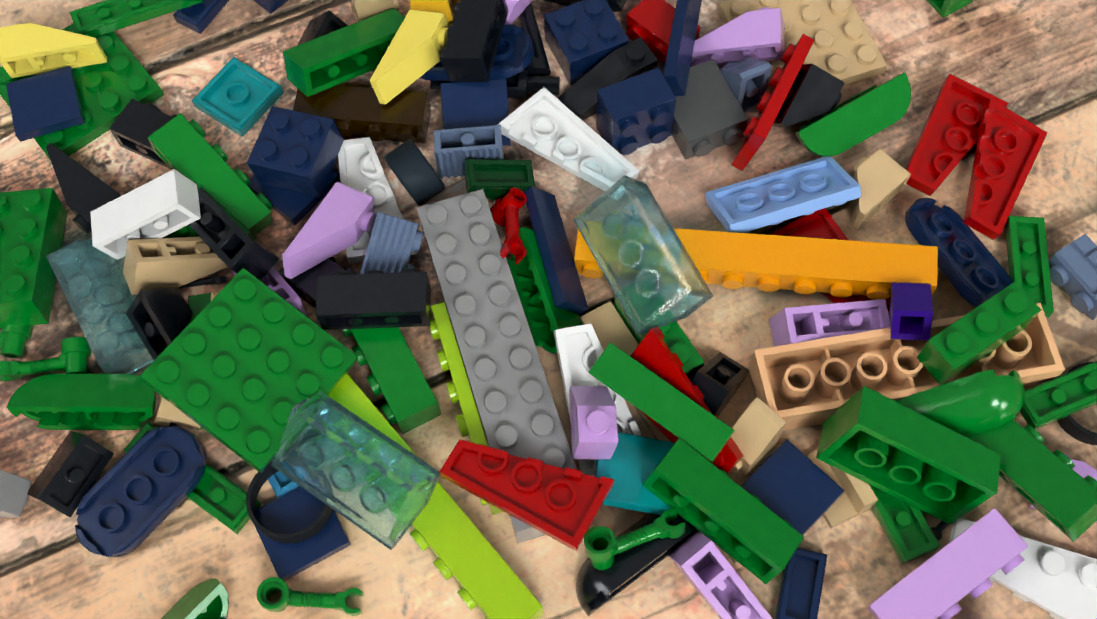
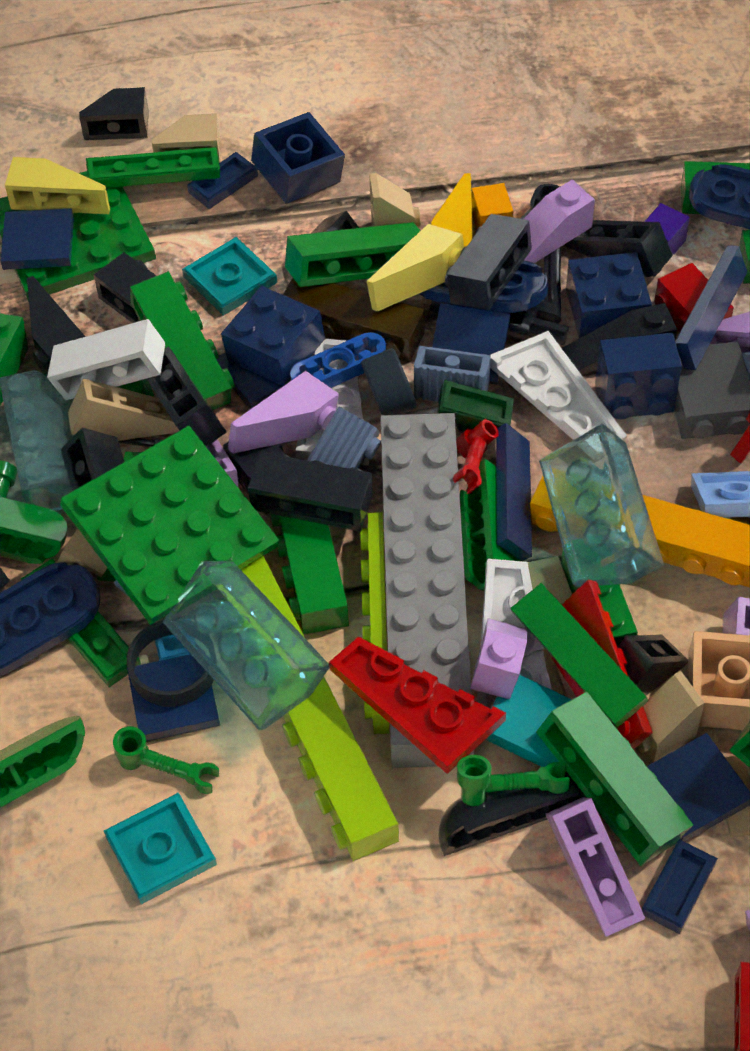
camera: 15 degrees right, 10 degrees down
(369, 150) = (346, 351): none -> blue beam

